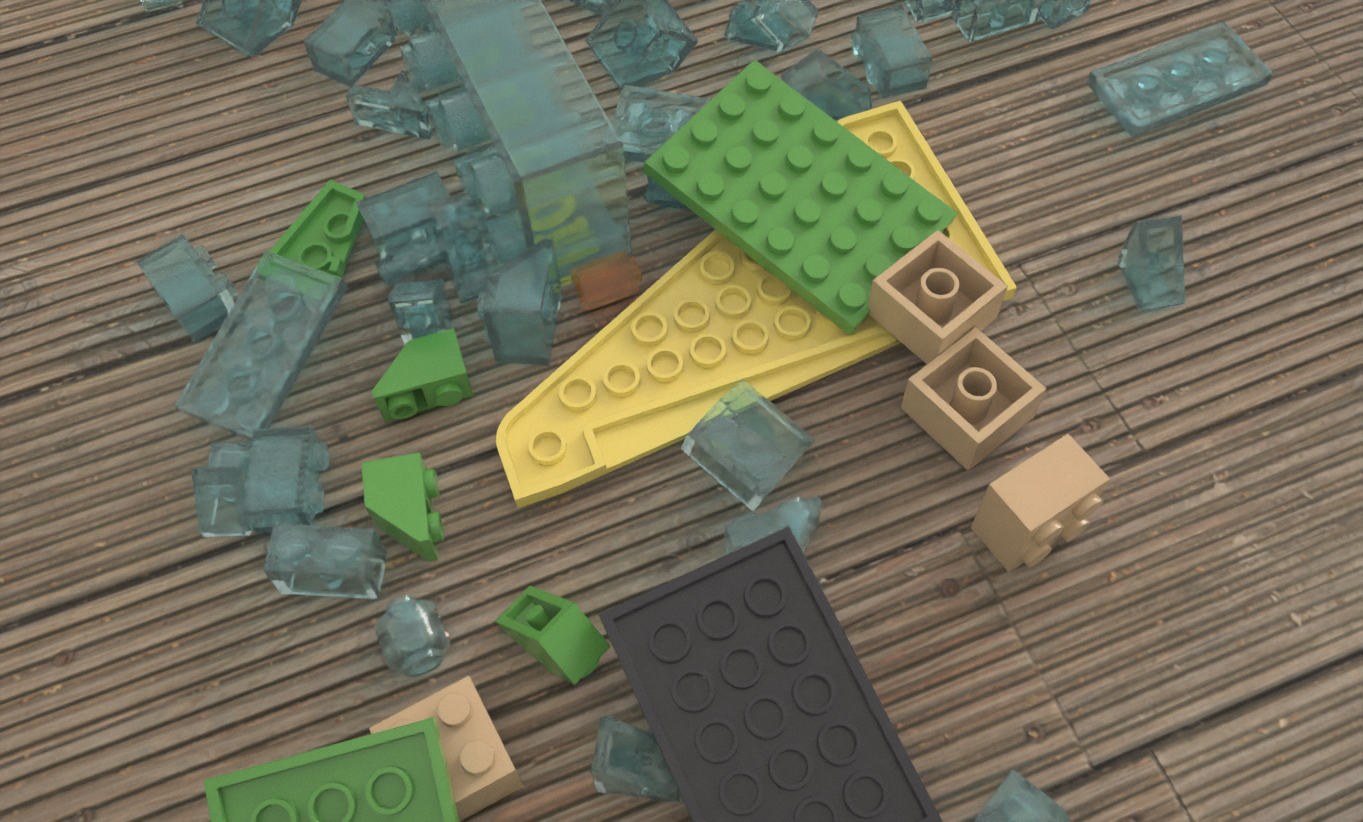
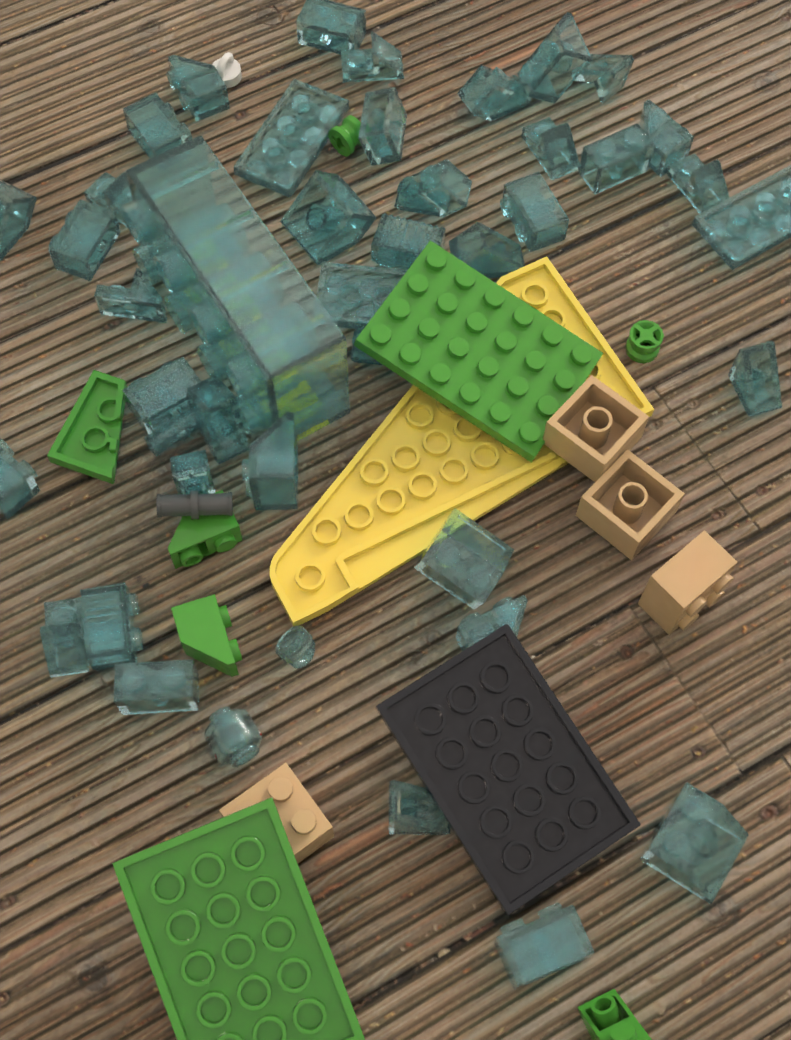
camera: 10 degrees left, 5 degrees up
(262, 346) = (69, 519): clear light blue plate -> none
(413, 339) = (194, 504): none -> dark grey pin
(512, 528) = (296, 644): none -> clear light blue tile
(554, 633) = (339, 721): bright green slope -> none
(606, 279) = (334, 435): clear orange brick -> none
(719, 63) = (402, 240): none -> clear light blue brick
(1012, 208) = (641, 333): none -> bright green wheel
(1100, 34) = (699, 183): none -> clear light blue slope

